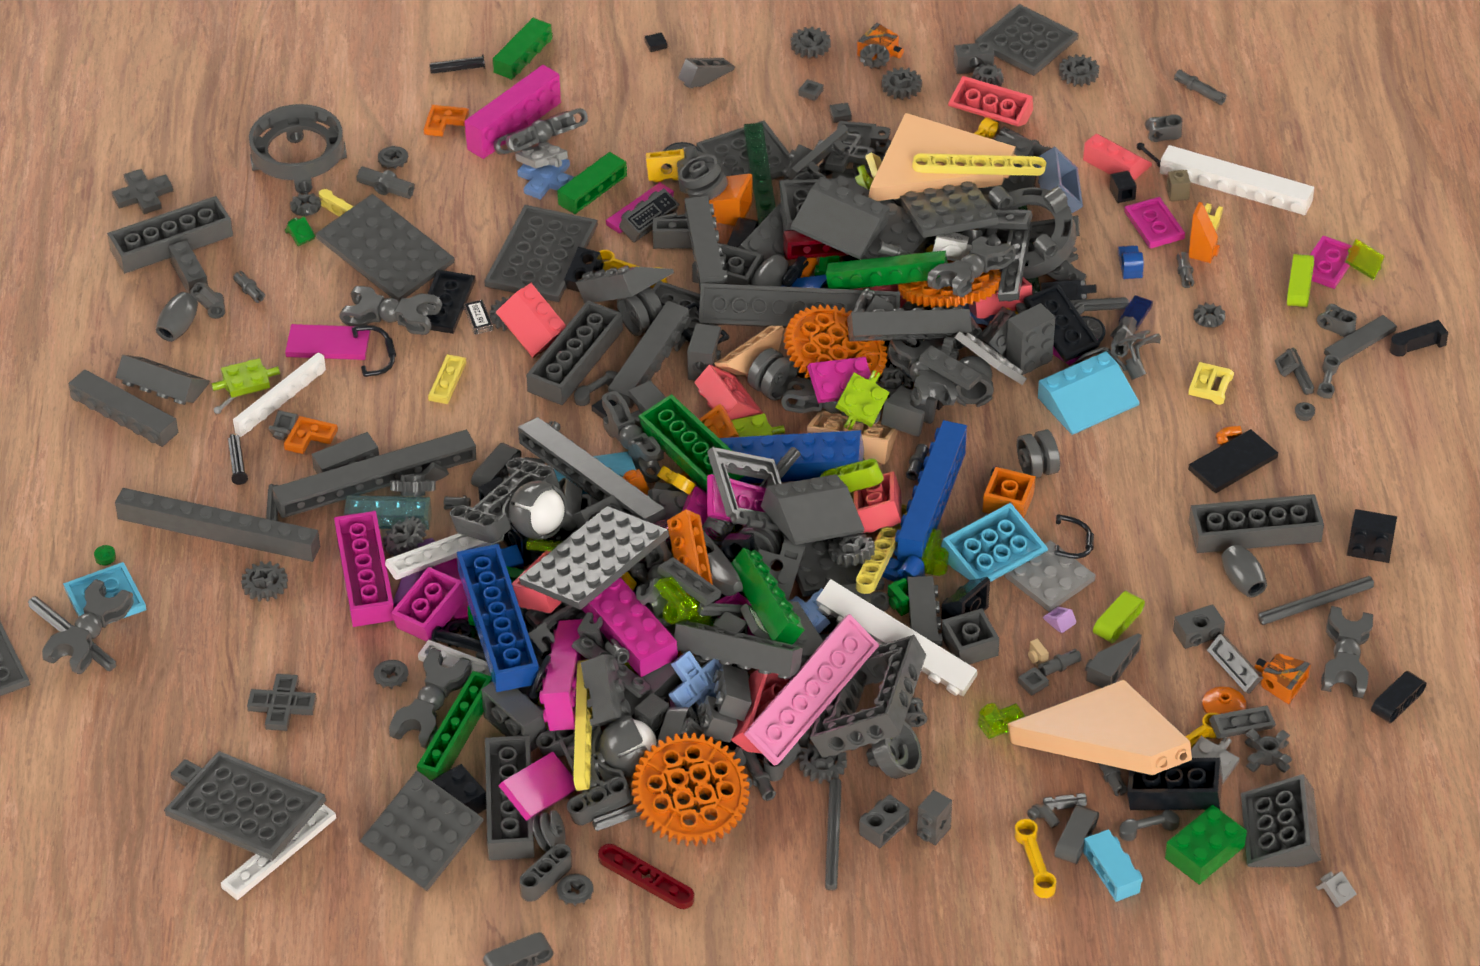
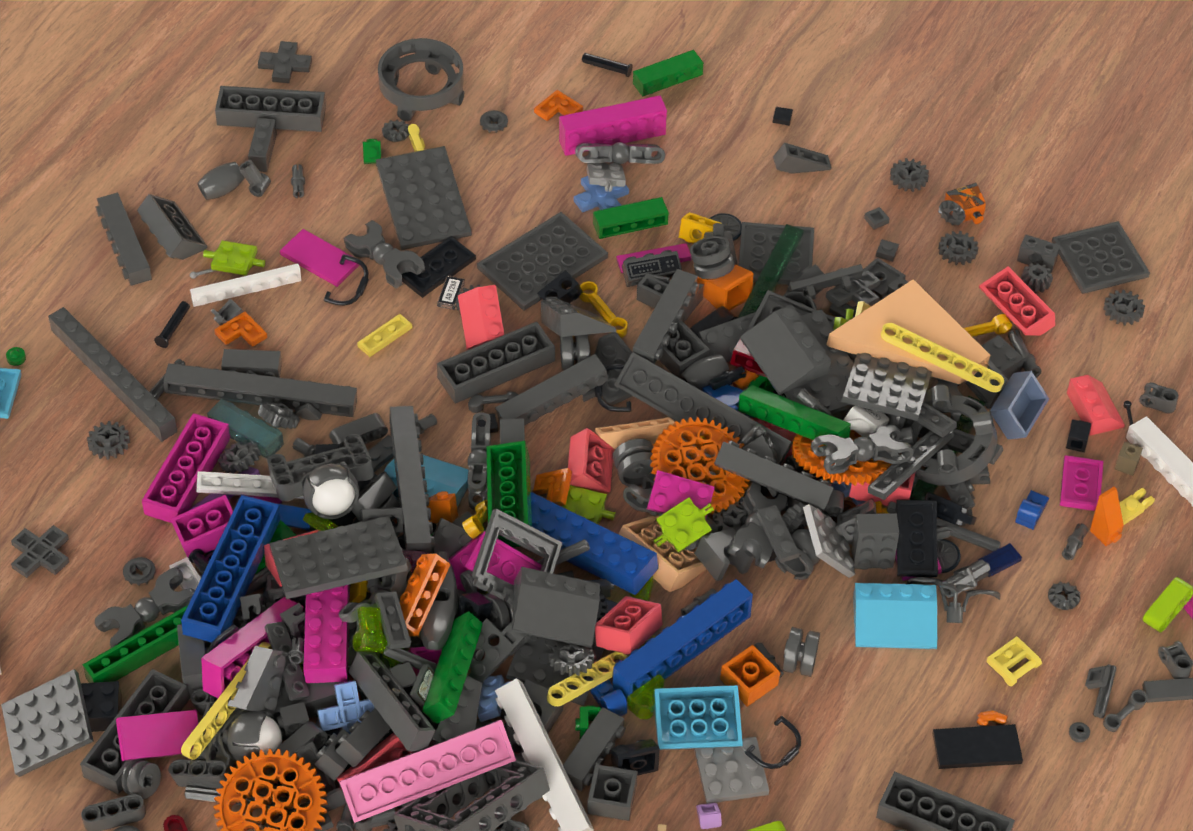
camera: 30 degrees right, 5 degrees up
(385, 182) = (469, 140): dark grey piece -> none
(703, 349) = (595, 411): dark grey piece -> none
(858, 474) = (622, 591): lime beam -> none
(880, 600) = (568, 714): dark grey tile -> none

